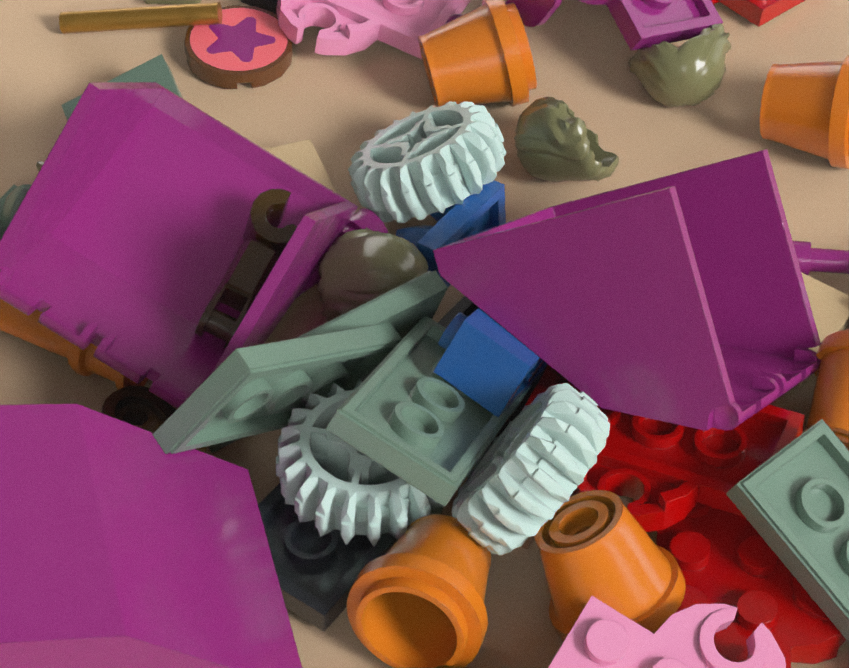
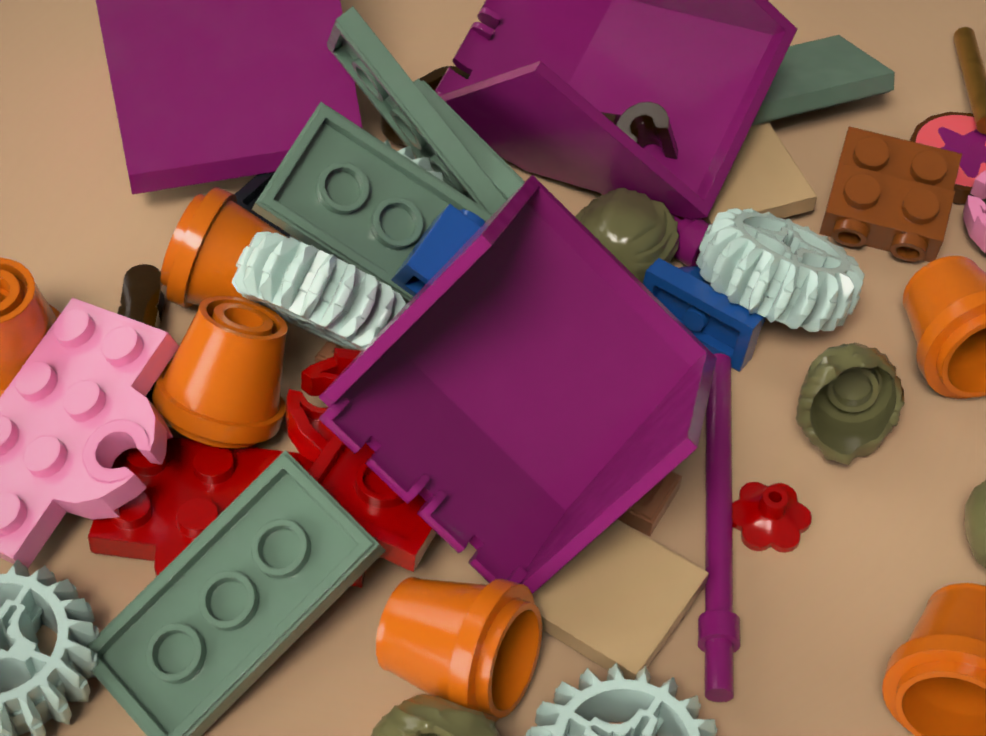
camera: 90 degrees right, 5 degrees up
(305, 91) = (891, 195): none -> dark orange plate

